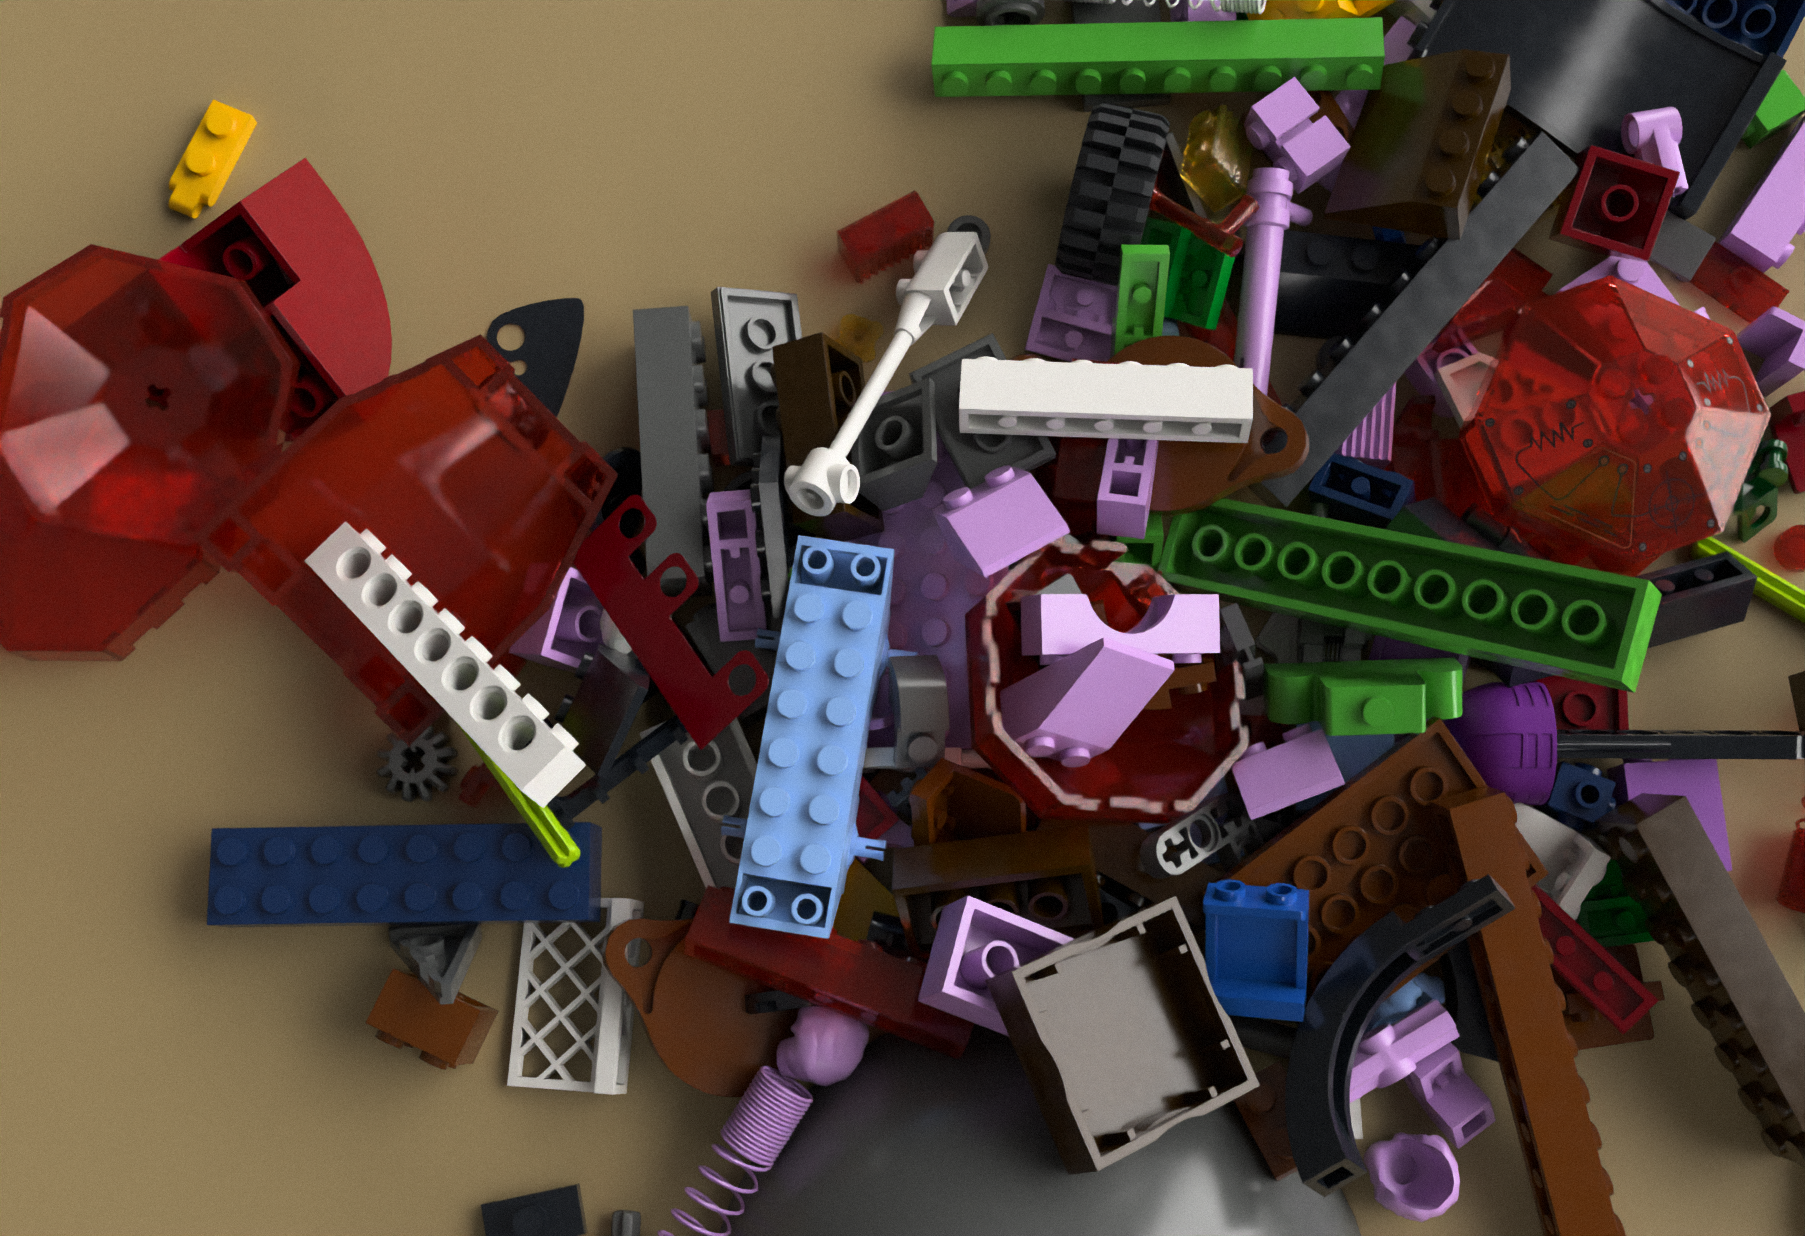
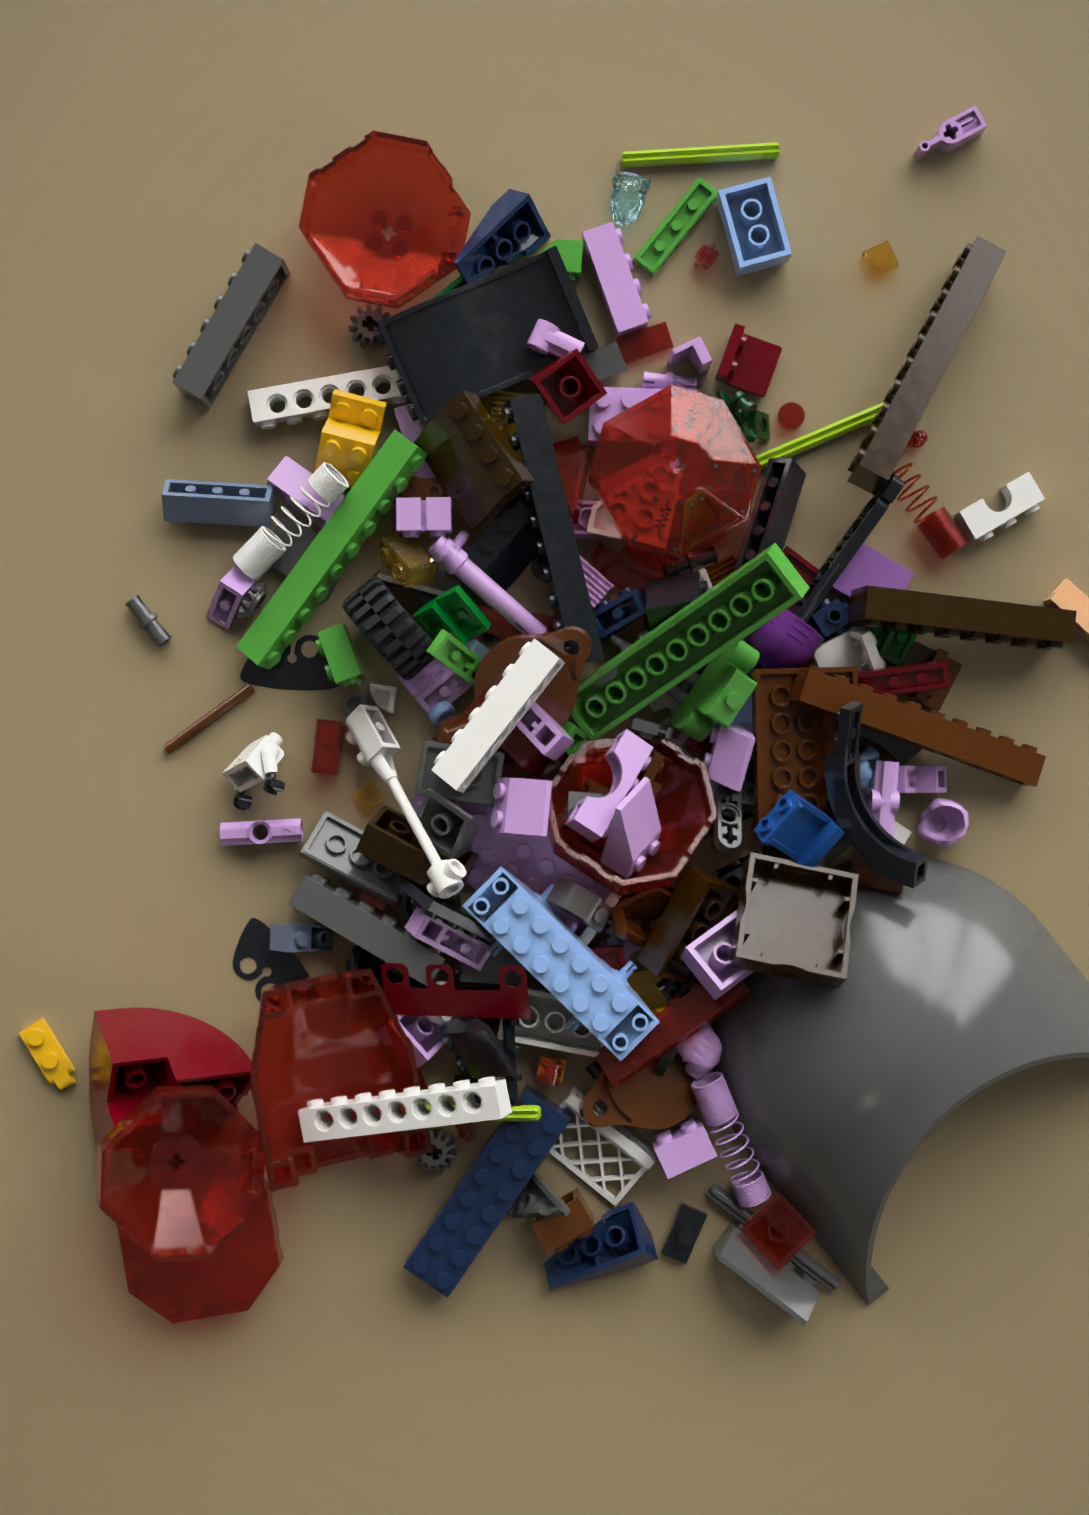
camera: 55 degrees left, 10 degrees up
(438, 1118) = (615, 1245): none -> dark blue wedge
(598, 375) = (300, 937): none -> sand blue slope
(645, 848) = (550, 1070): none -> clear red leg
(662, 1121) = (683, 1147): none -> lavender brick
(692, 209) = (244, 832): none -> lavender piece
(789, 153) = (254, 766): none -> white torso
(813, 65) = (209, 718): none -> reddish brown bar
(960, 149) = (301, 675): none -> black piece
(1008, 269) = (384, 696): none -> white tile
(1023, 165) = (342, 658): none -> bright green brick
(1044, 347) = (441, 711): none -> light blue tile
(1218, 236) = (450, 596): clear red piece -> none

